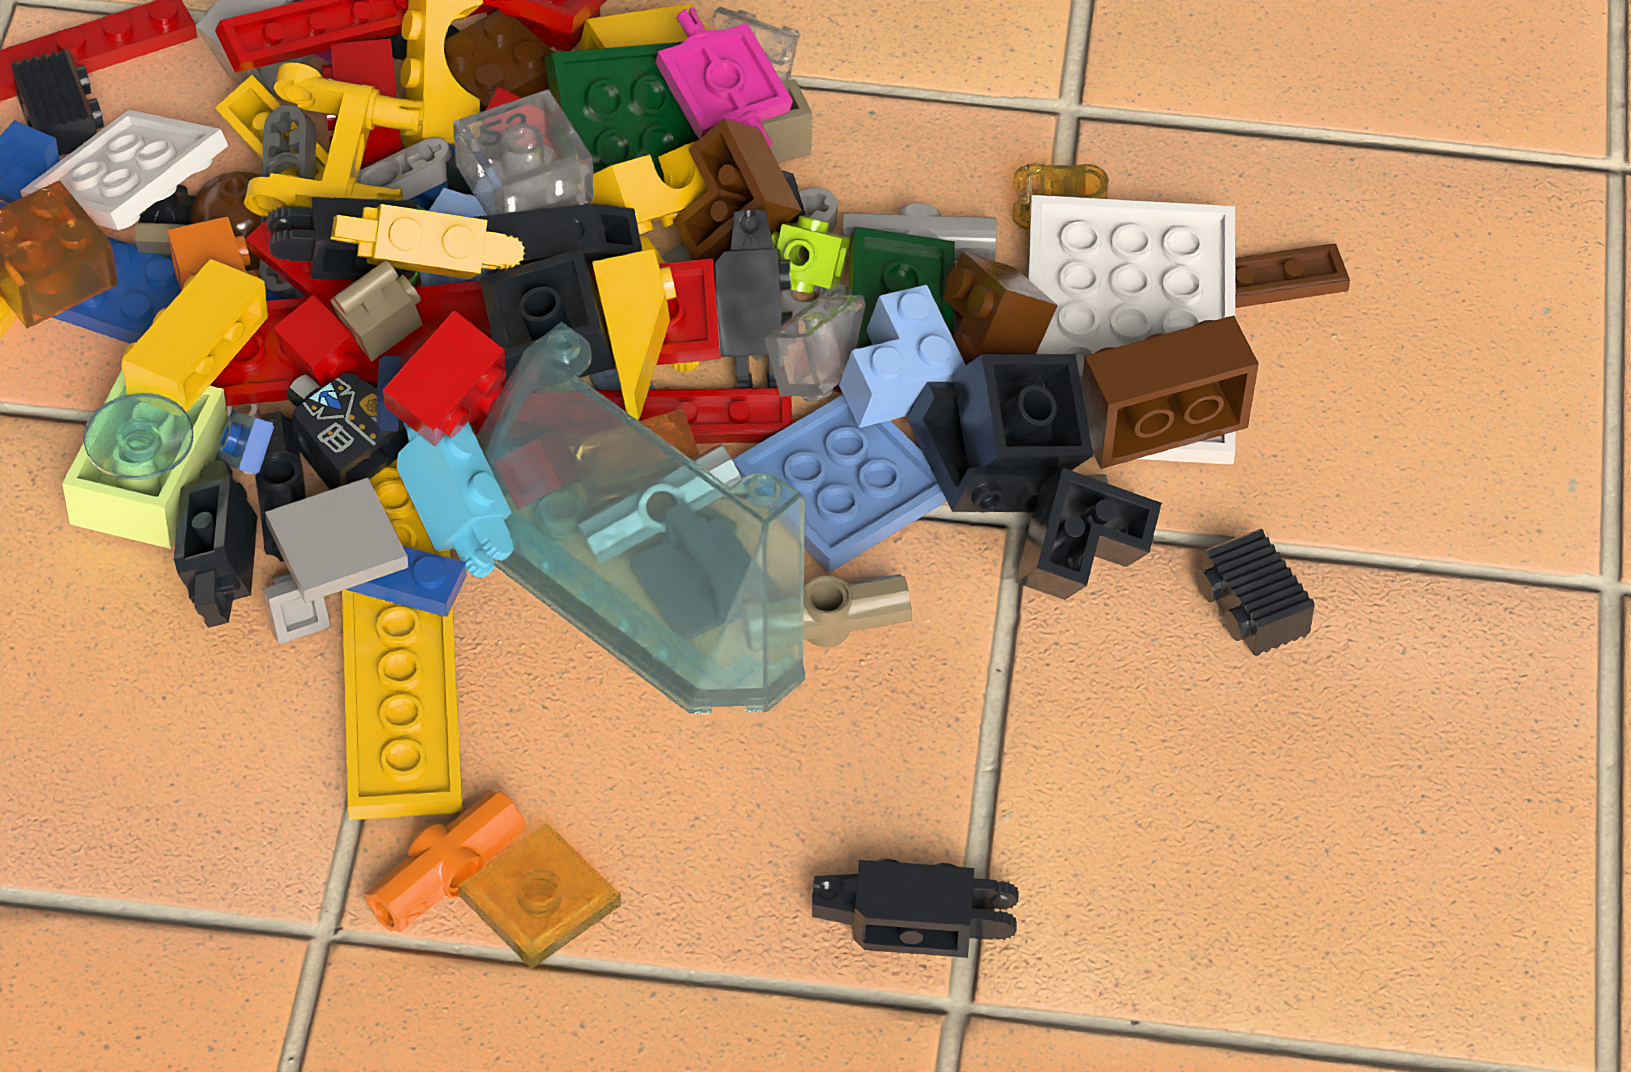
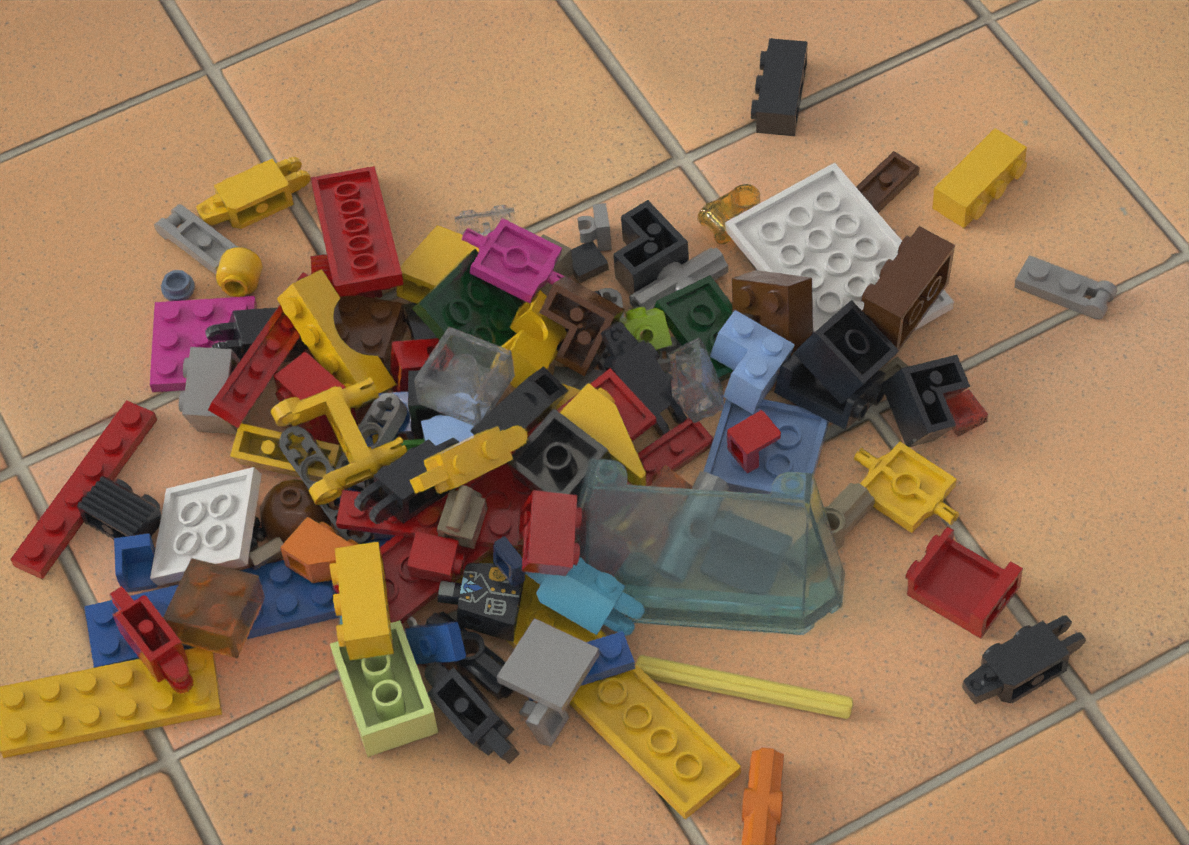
camera: 30 degrees left, 5 degrees up
(138, 436) = (384, 667): clear light blue dish -> none
(539, 895) = (827, 791): clear yellow plate -> none
(560, 723) = (746, 687): none -> light yellow axle
(819, 441) = (750, 437): none -> red panel
(837, 150) = (588, 262): none -> black tile
(881, 118) = (596, 227): none -> light grey tile
(914, 174) = (650, 247): none -> black brick
(930, 772) = (962, 584): none -> red panel
(970, 624) = (907, 486): none -> yellow plate
(1123, 585) = (966, 412): none -> clear red plate
(1256, 592) = (1032, 372): black brick -> none
(1262, 91) = (780, 87): none -> black brick
(1401, 524) = (1065, 287): none -> light grey plate
(1411, 333) = (980, 178): none -> yellow brick

